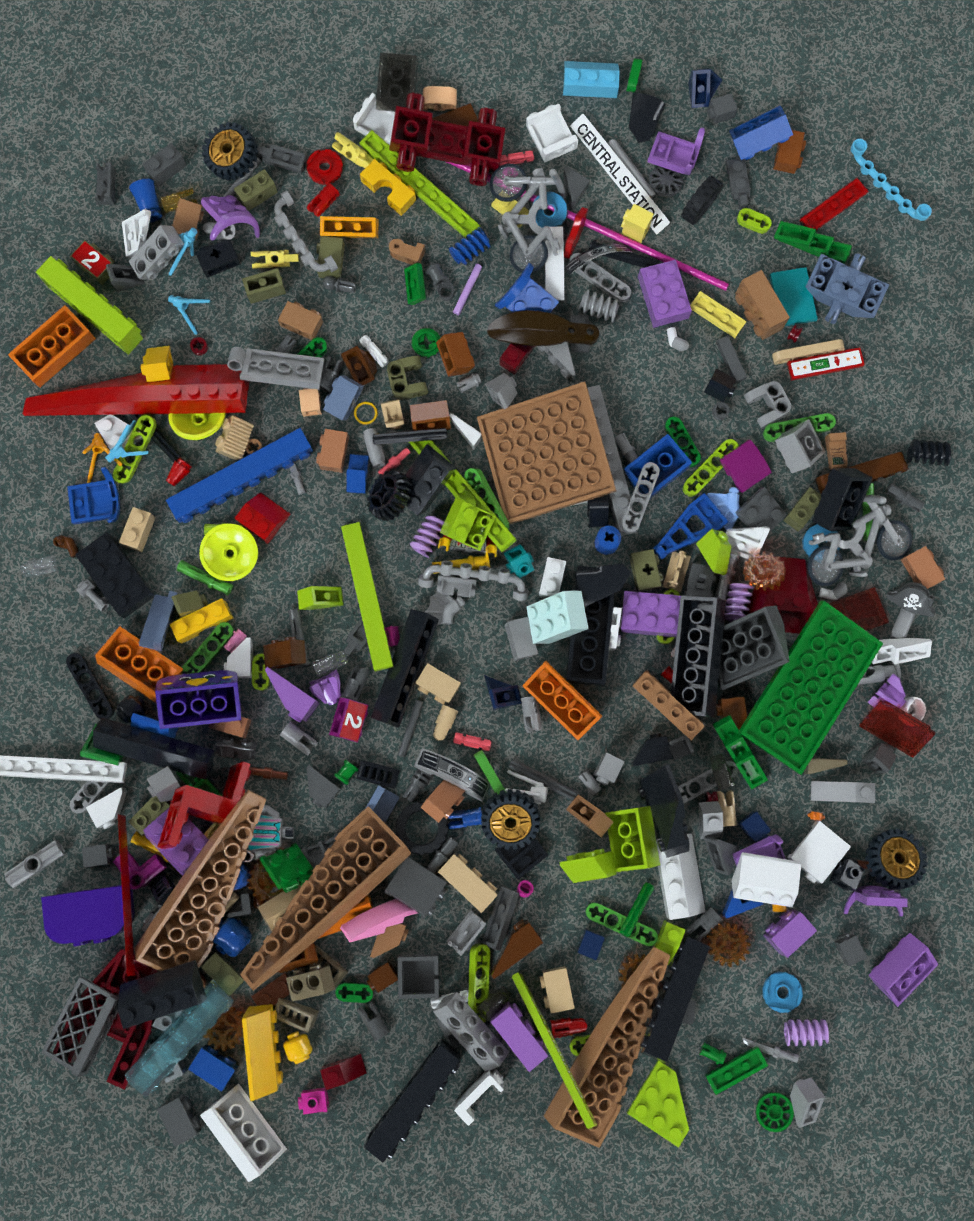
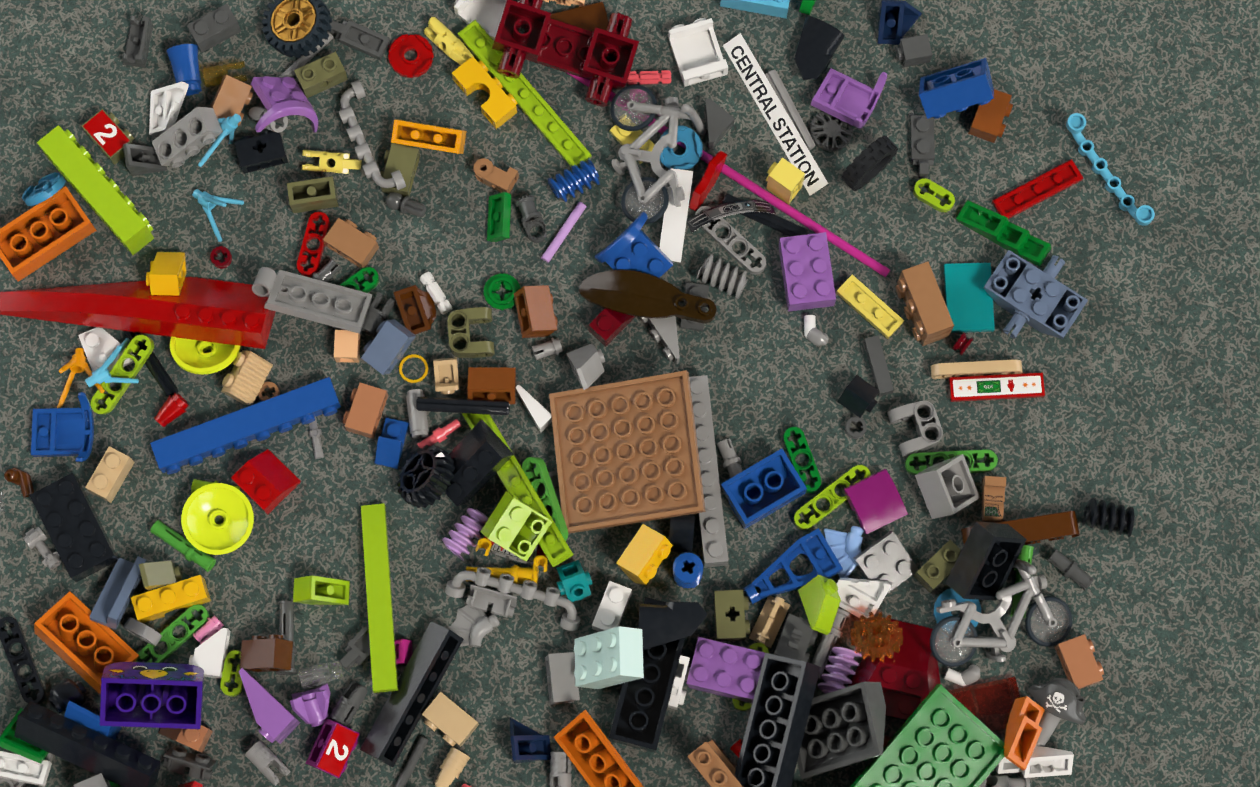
camera: 10 degrees right, 5 degrees down
(49, 309) = (45, 189): none -> dark azure tile
(183, 649) = (142, 631): none -> light grey beam
(266, 312) = (323, 229): none -> red beam
(323, 200) = (402, 97): red hinge -> none
(572, 533) = (644, 555): none -> yellow slope
(641, 498) = (734, 523): light grey beam -> none
(890, 628) = (1022, 731): none -> orange slope

